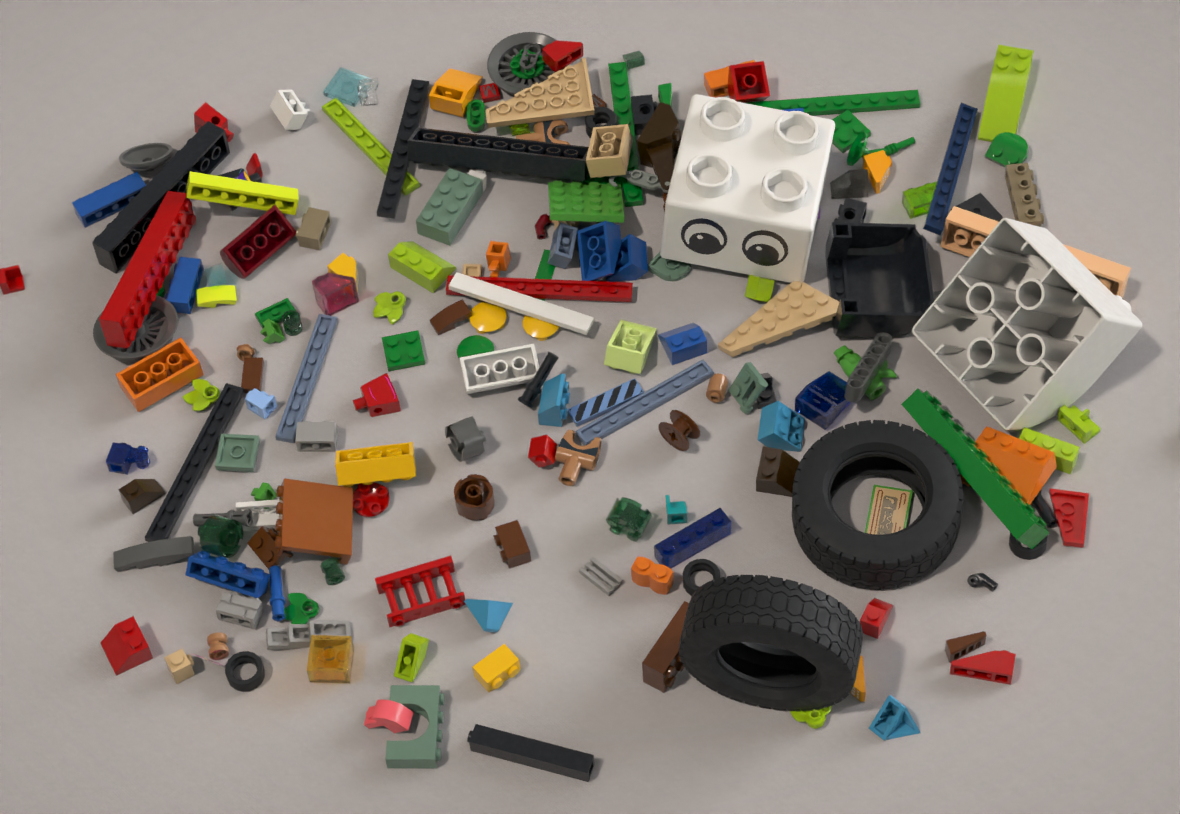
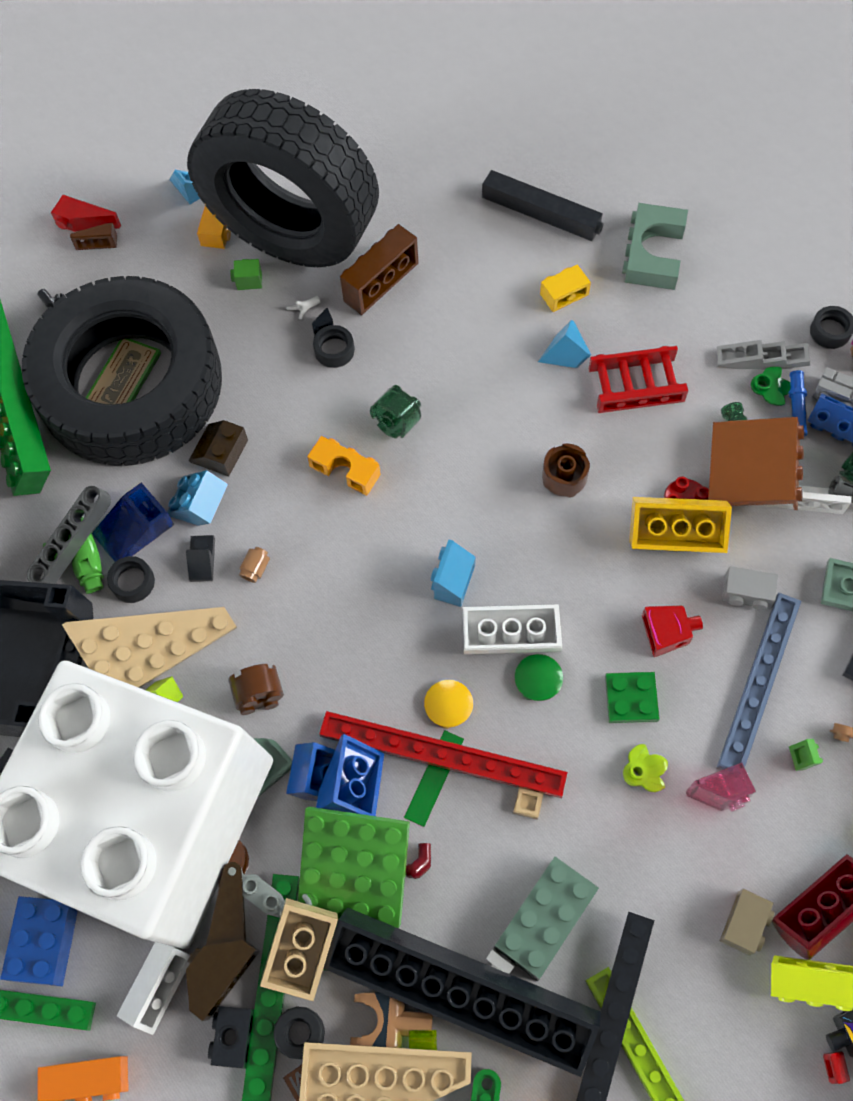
camera: 170 degrees left, 10 degrees up
(252, 374) = (832, 698): reddish brown tile -> none
(260, 403) = (822, 648): light blue brick -> none
(264, 547) = (814, 463): reddish brown bracket -> none
(265, 492) = (815, 521): bright green tile -> none
(274, 312) = (802, 786): green plate -> none
(292, 323) = (783, 759): clear green wheel -> none
(330, 659) = (740, 316): clear yellow brick -> none
(344, 266) = (702, 831): yellow slope -> none
(390, 715) = (686, 250): coral brick -> none
(410, 656) = (652, 314): lime slope -> none
(420, 265) = (595, 827): lime slope -> none
(446, 319) = (565, 732): reddish brown slope -> none
(465, 439) = (567, 542): dark grey brick -> none
(487, 317) = (516, 726): yellow dish -> none
(498, 257) = (491, 806): orange brick -> none
(512, 543) = (529, 414): reddish brown brick -> none
(521, 303) = (472, 726): white tile -> none
(534, 387) = (473, 596): black pin -> none
(542, 451) = (477, 515): red brick -> none
(562, 245) = (401, 801): sand blue brick -> none
(576, 457) = (439, 506): medium nougat connector -> none
(589, 566) = (430, 357): light grey tile -> none
(604, 402) = (389, 575): medium blue tile -> none
(629, 346) = (342, 643): yellowish green slope -> none
(645, 402) = (343, 567): sand blue tile -> none
(652, 575) = (385, 353): orange brick -> none
(665, 93) = (193, 1058): green slope -> none
(676, 511) = (341, 423): teal panel -> none
(677, 432) = (313, 505): reddish brown piece -> none
(678, 481) = (329, 454): none -> light orange arch
(684, 343) = (277, 636): blue slope -> none
(686, 297) = (256, 688): none -> reddish brown brick
(693, 539) = (331, 384): clear blue brick -> none
(744, 384) = (217, 553): sand green plate -> none
(748, 82) = (62, 1044): red slope -> none
(809, 350) = (120, 567): none -> black tyre
(875, 617) = (173, 271): red slope -> none

